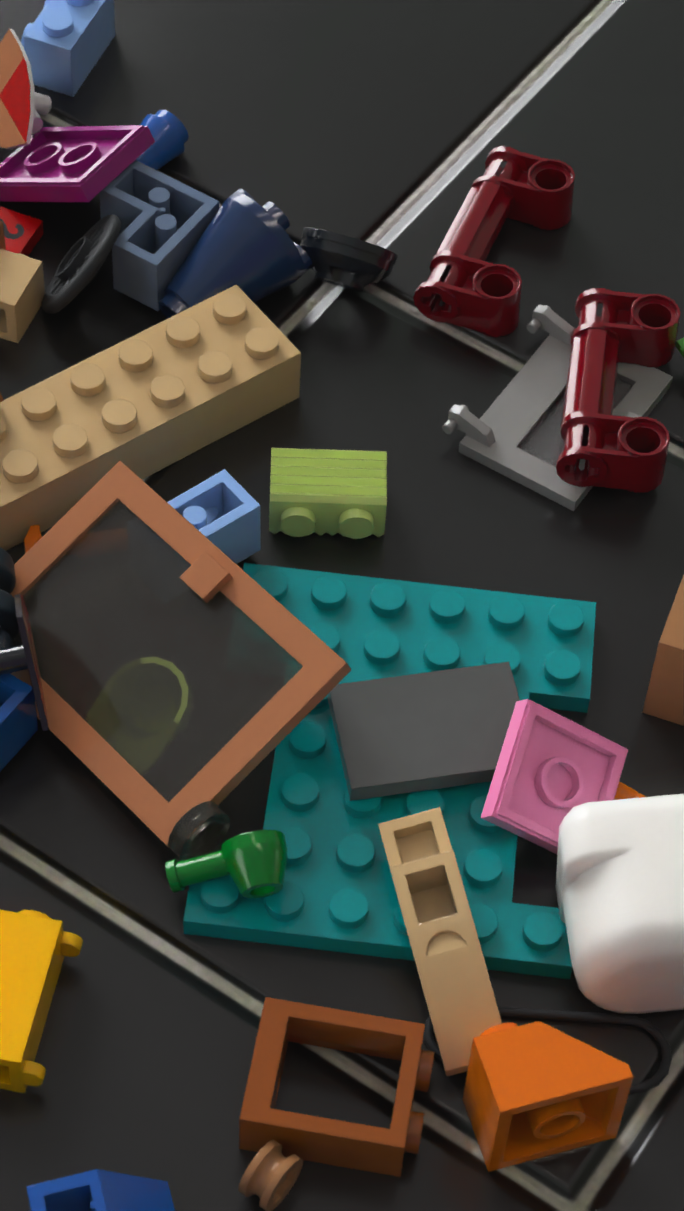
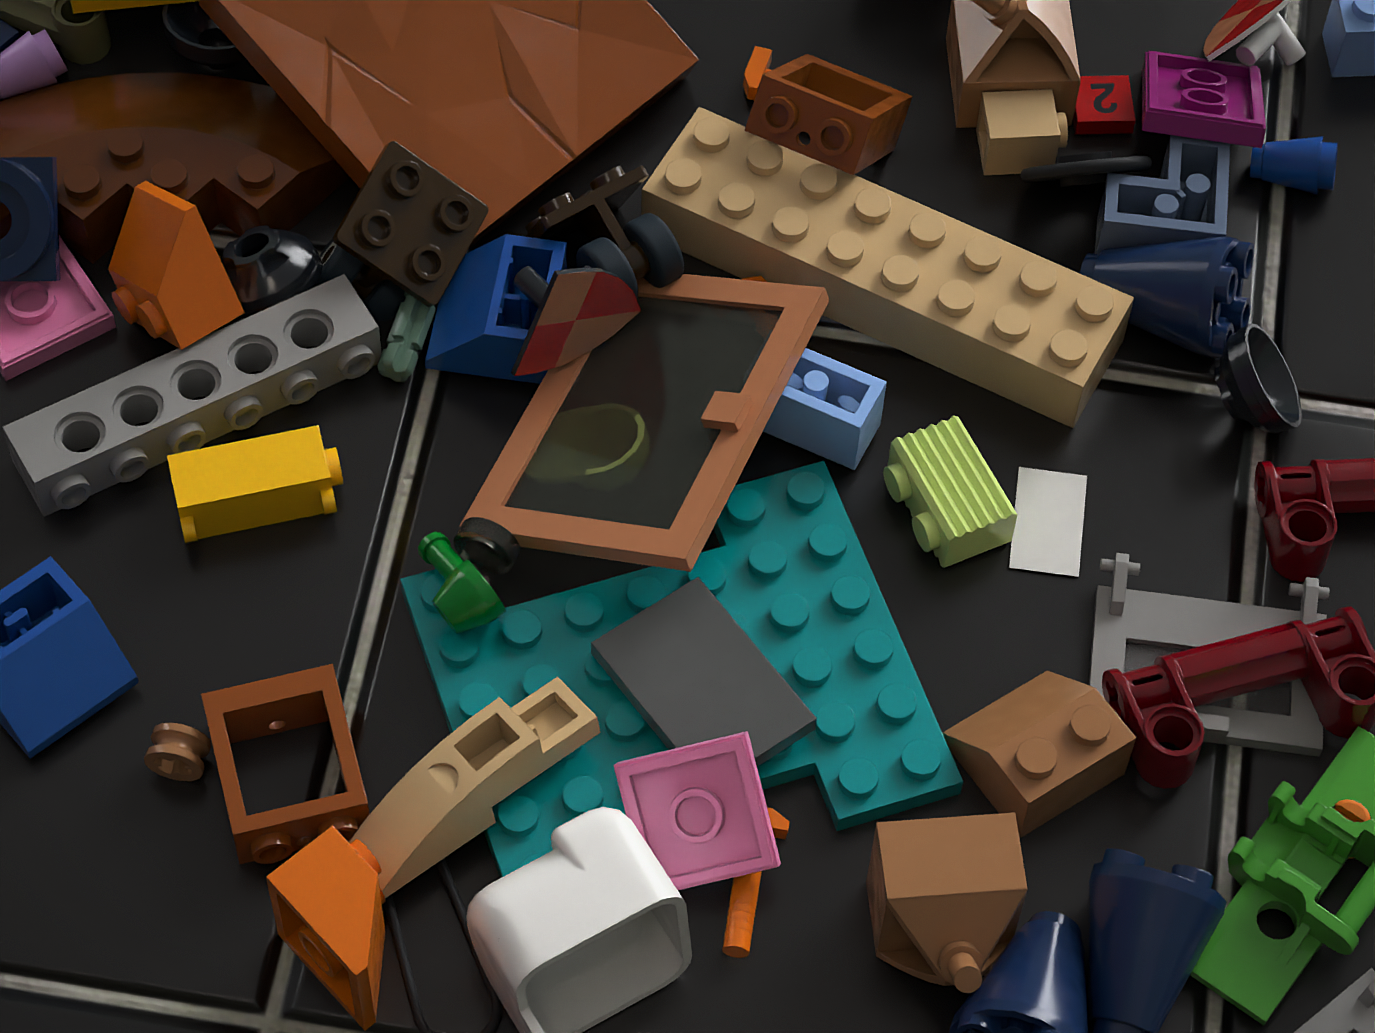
camera: 65 degrees right, 5 degrees up
(405, 457) = (1048, 522): none -> white sticker
(592, 537) = (1042, 748): none -> medium nougat slope

